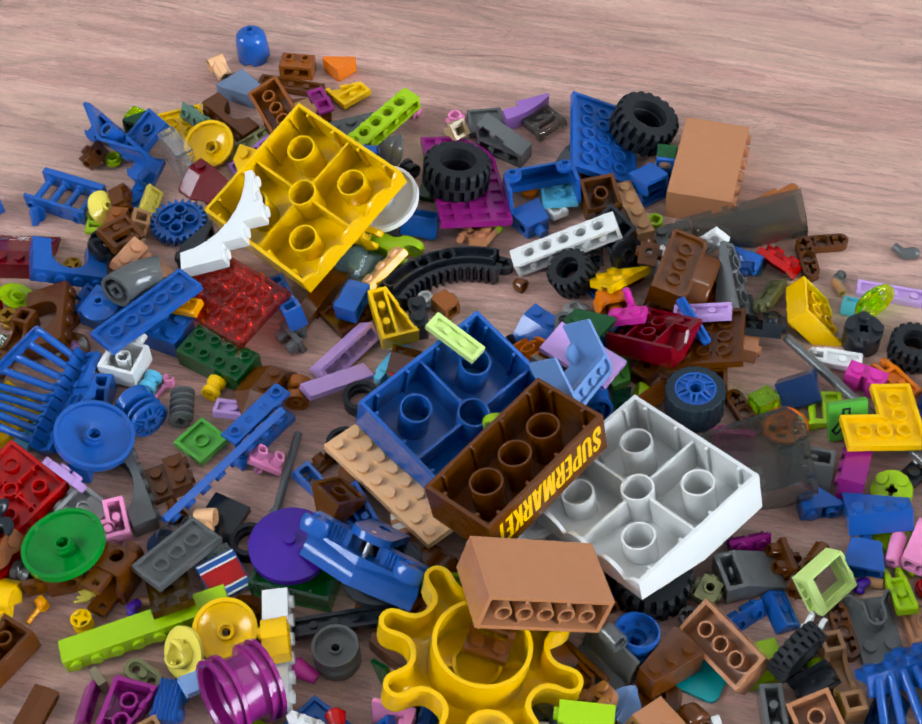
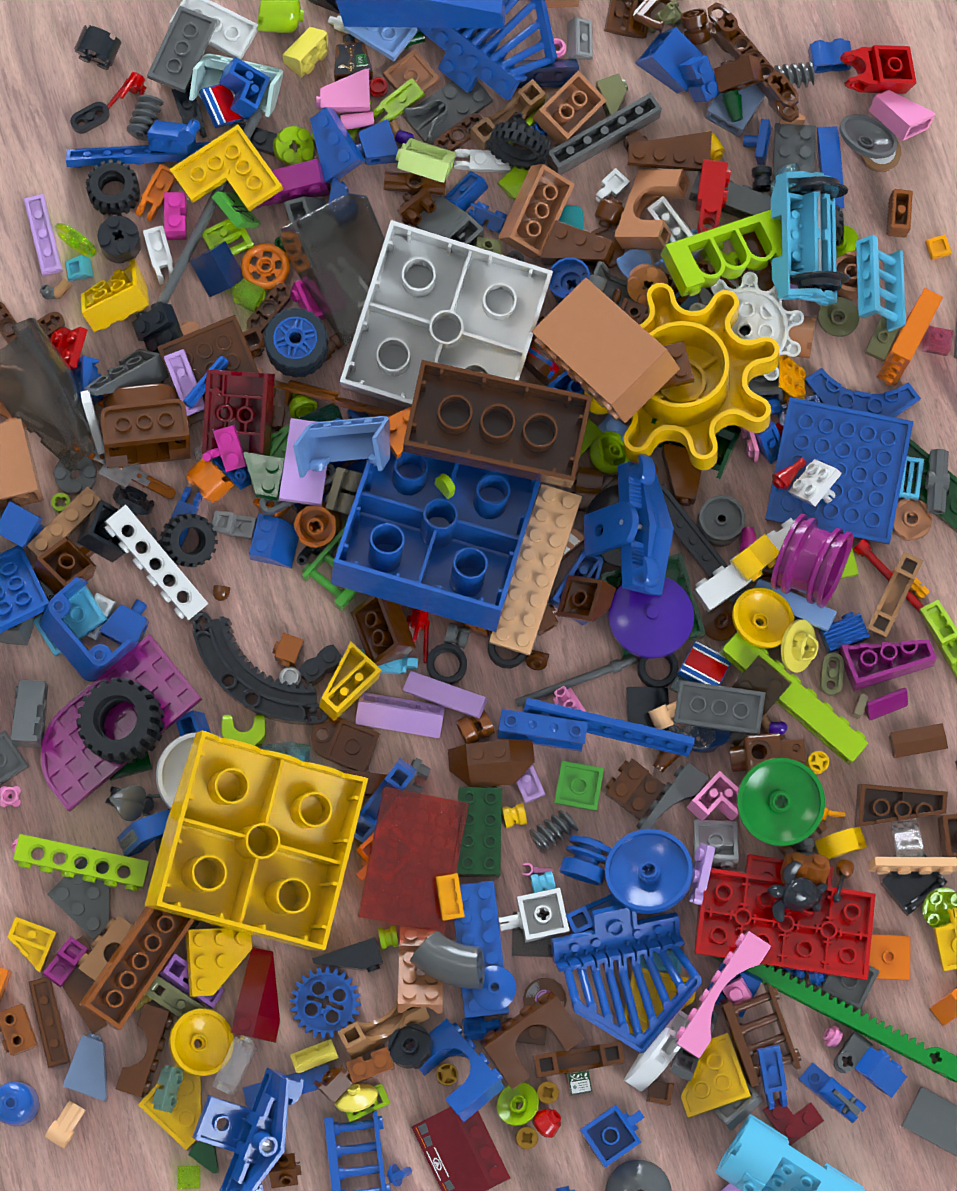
camera: 130 degrees left, 25 degrees up
(116, 229) = (390, 1041): reddish brown plate -> none
(146, 311) = (483, 920): blue plate -> none
(235, 234) = (376, 896): white arch -> none
(298, 474) = (559, 668): blue slope -> none
(351, 301) = (341, 738): blue brick -> none
(385, 267) = (283, 729): plate -> none
(455, 338) = (382, 560): yellowish green plate -> none
(457, 129) = (34, 781): tan brick -> none
(477, 237) = (187, 660): nougat plate -> none
(616, 279) = (177, 489): yellow wing -> none
(648, 260) = (128, 473): reddish brown brick -> none
(769, 295) = (112, 343): olive hinge -> none

